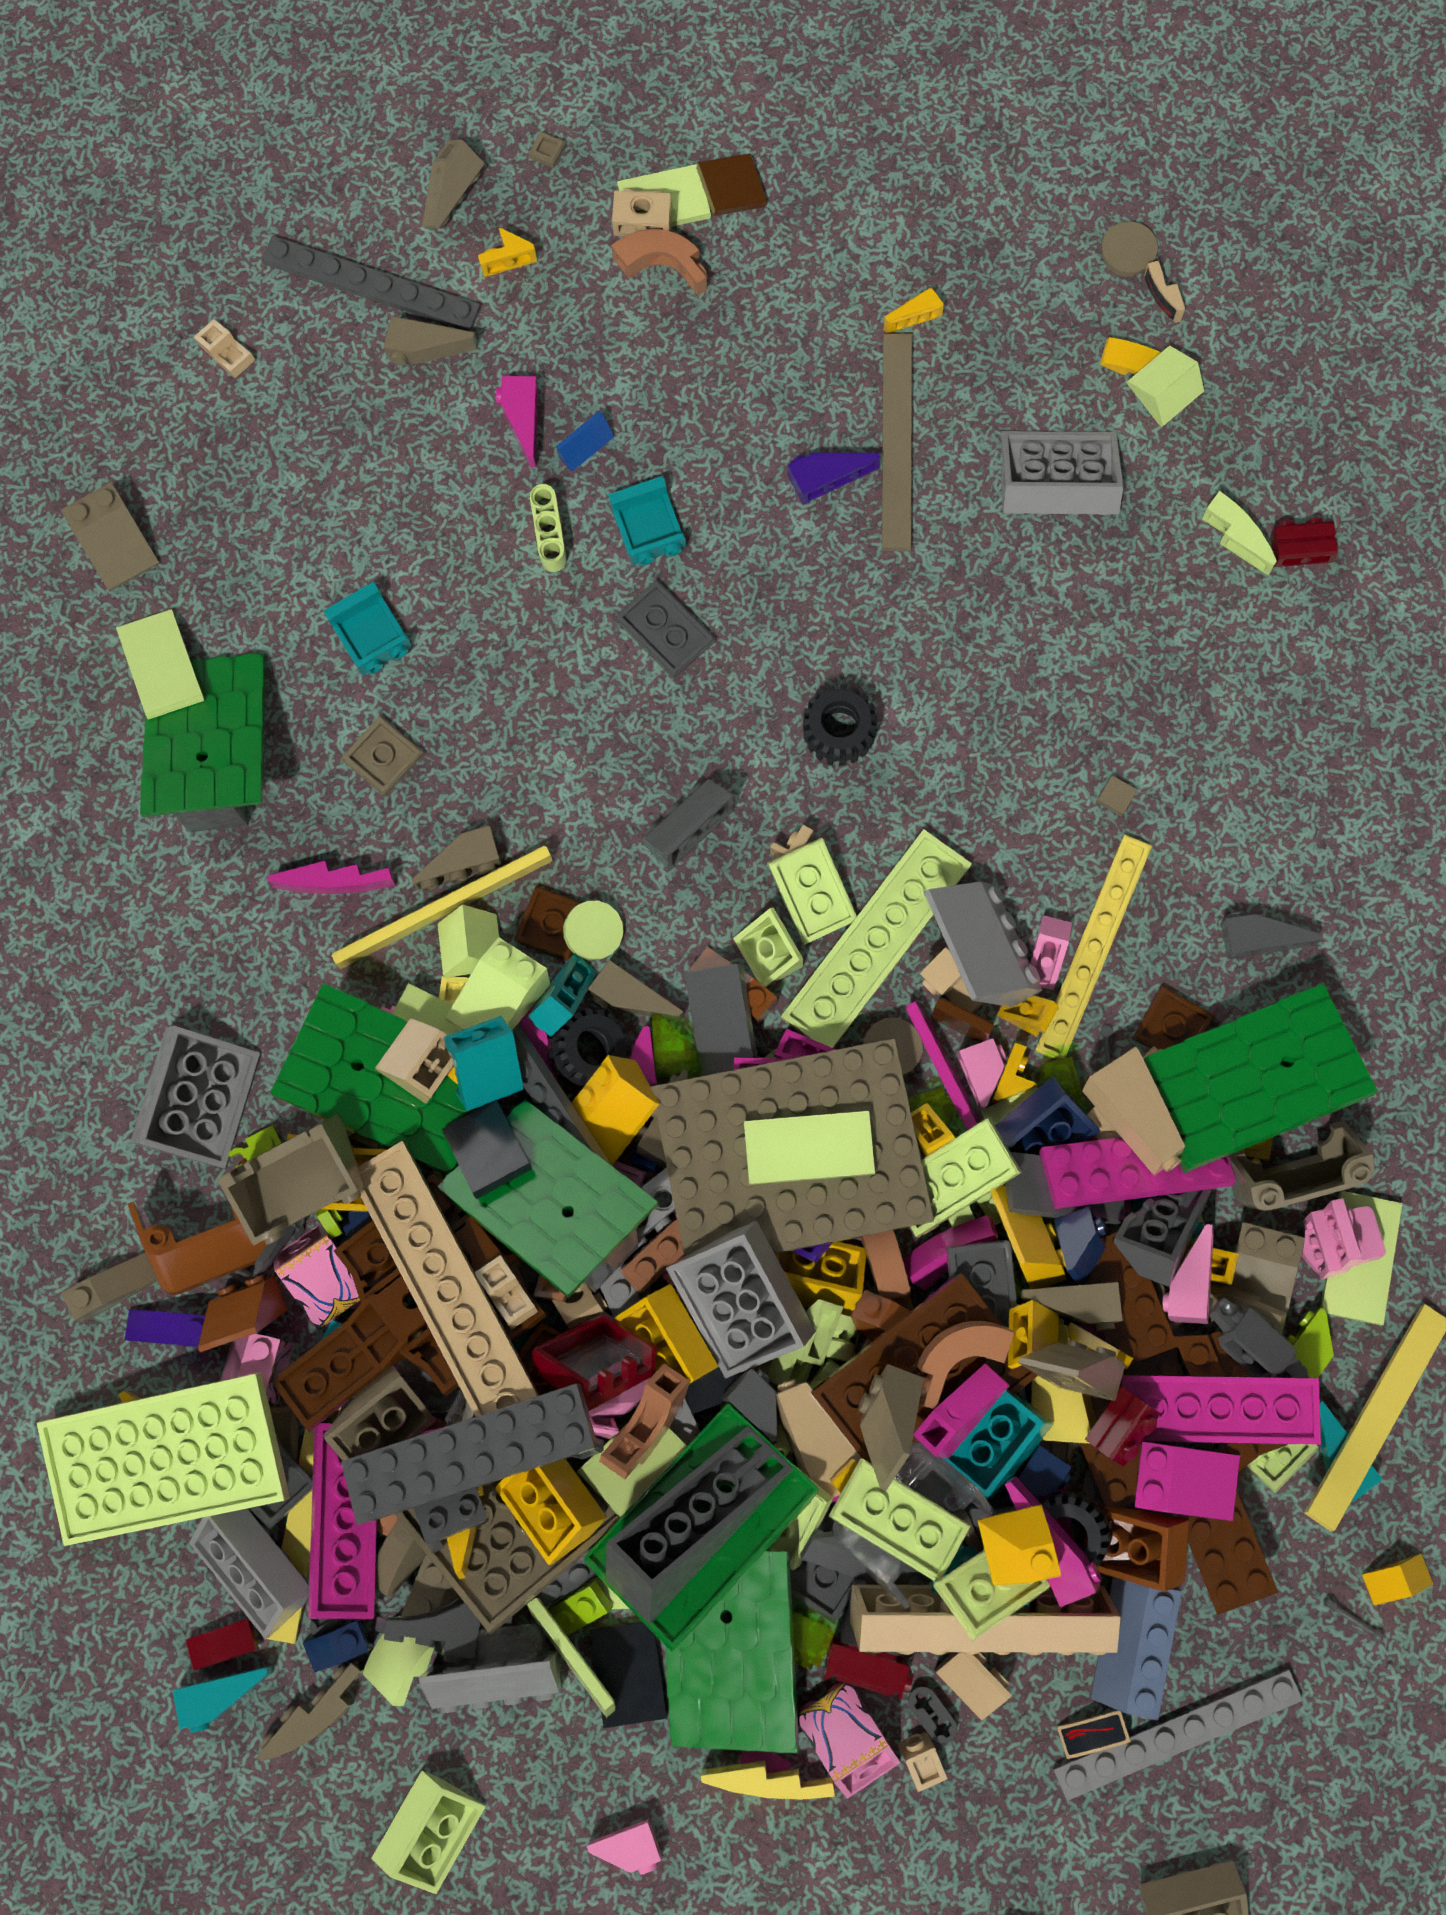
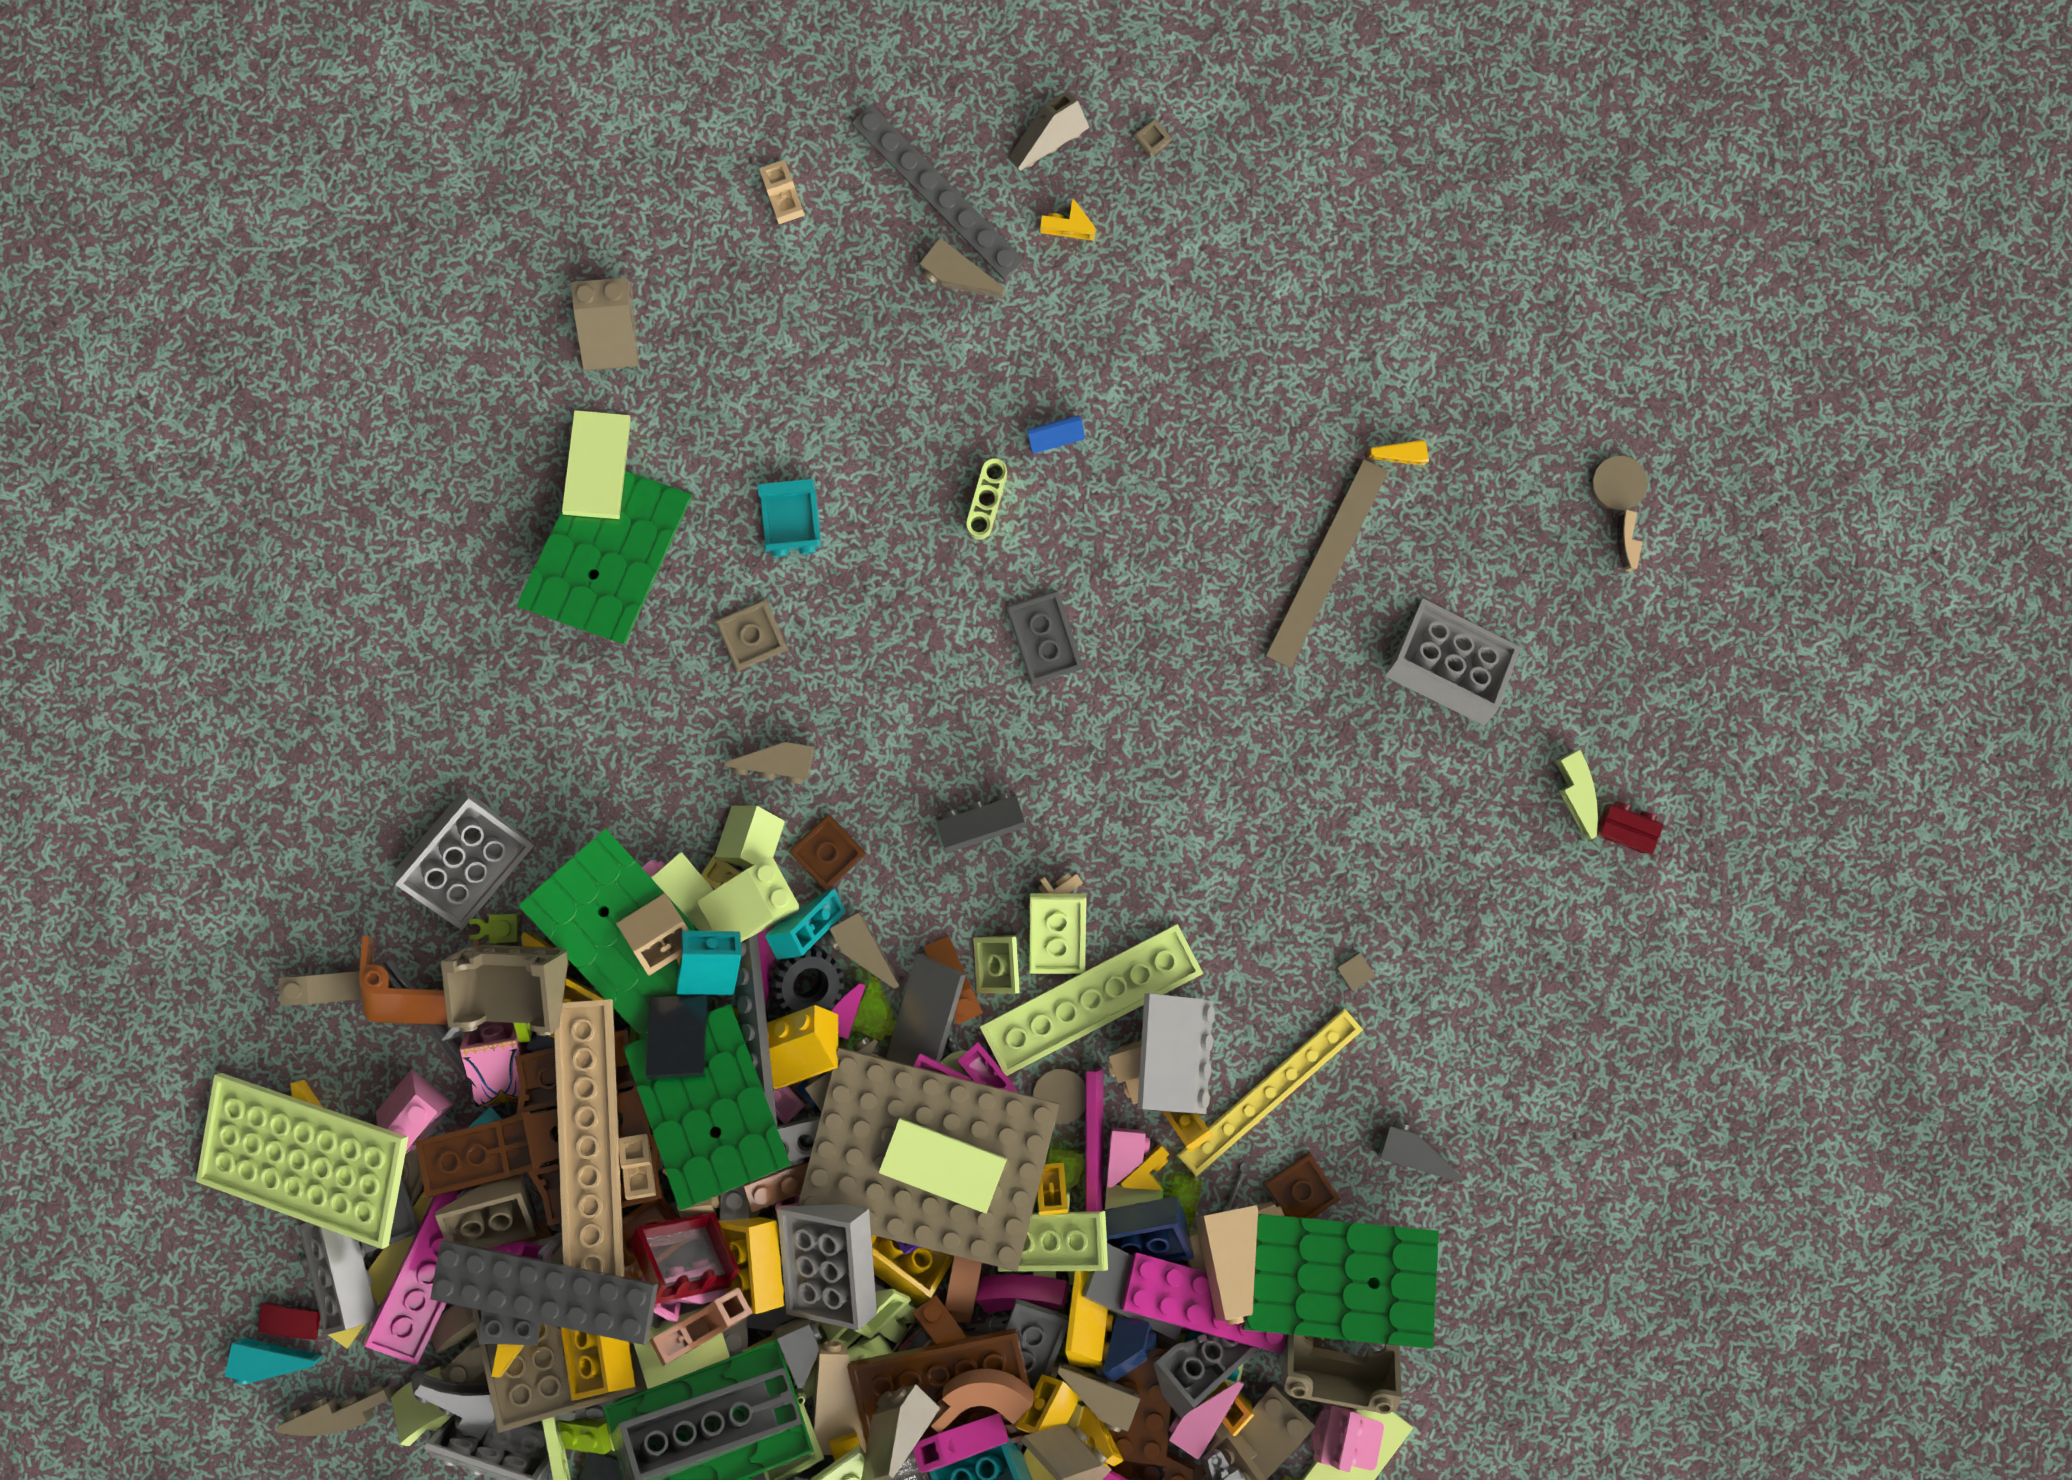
camera: 15 degrees right, 10 degrees up
(164, 1328) = (360, 1047): dark purple slope -> none
(241, 1311) = (417, 1069): dark orange slope -> none
(321, 880) = (651, 722): dark pink slope -> none
(338, 1645) = (380, 1369): dark blue slope -> none
(441, 907) = (741, 795): light yellow tile -> none
(520, 407) = (1014, 374): dark pink slope -> none
(593, 930) = (858, 876): yellowish green tile -> none
(627, 204) = (1212, 260): tan brick -> none
(647, 522) = (1075, 535): teal panel -> none
(660, 248) = (1202, 280): nougat arch -> none
(686, 191) = (1233, 236): yellowish green tile -> none
(731, 184) = (1299, 253): reddish brown tile -> none
(825, 472) = (1248, 564): dark purple slope -> none
(839, 702) = (1126, 799): black tyre -> none
(962, 1020) = (1127, 1107): reddish brown tile -> none
(1050, 950) = (1231, 1078): bright pink slope -> none
(1126, 356) = (1569, 588): yellow slope -> none
(1167, 384) = (1586, 627): yellowish green slope -> none

